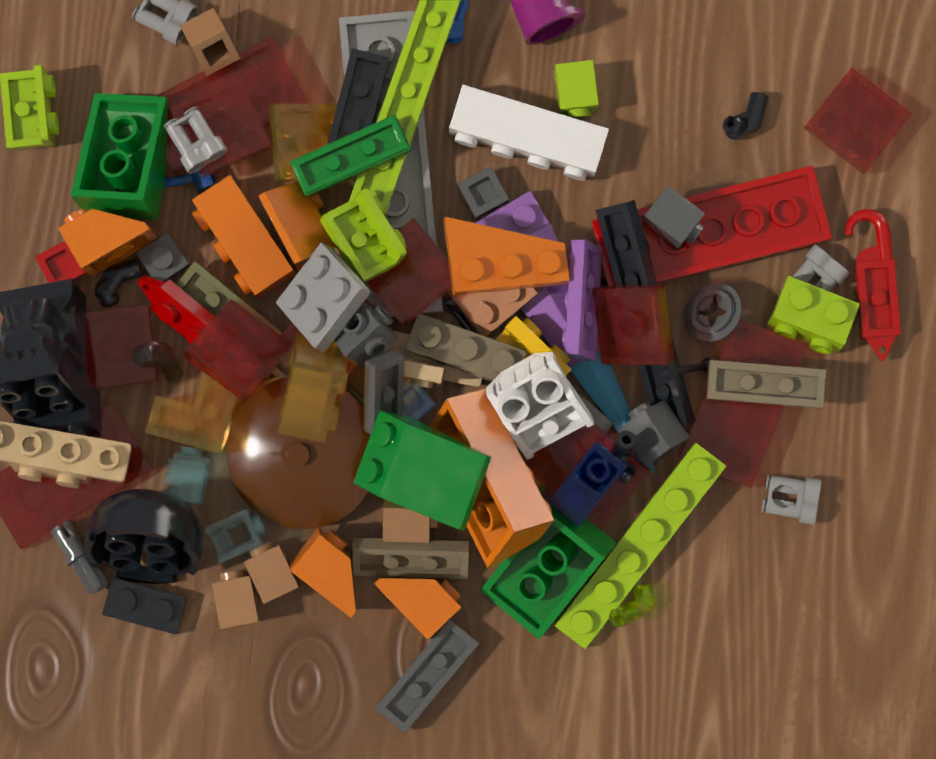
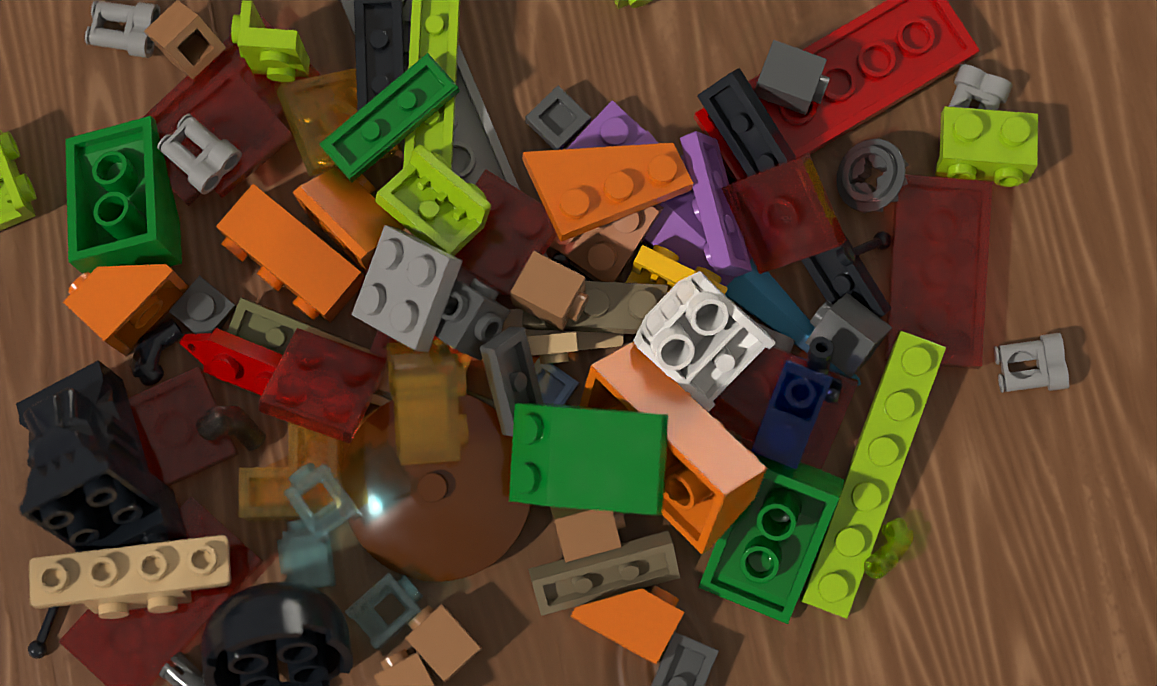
camera: 15 degrees left, 5 degrees down
(59, 264) = (80, 348): red plate -> none
(201, 184) = (212, 202): blue hand -> none
(216, 455) = (331, 515): none -> clear light blue window
(275, 78) = (266, 50): none -> lime bracket
(327, 569) = (508, 616): orange slope -> none
(433, 332) = (550, 291): none -> medium nougat brick
(527, 132) = (589, 35): white brick -> none
(766, 384) = (960, 238): dark tan plate -> none
(876, 285) = (1048, 90): red plate -> none

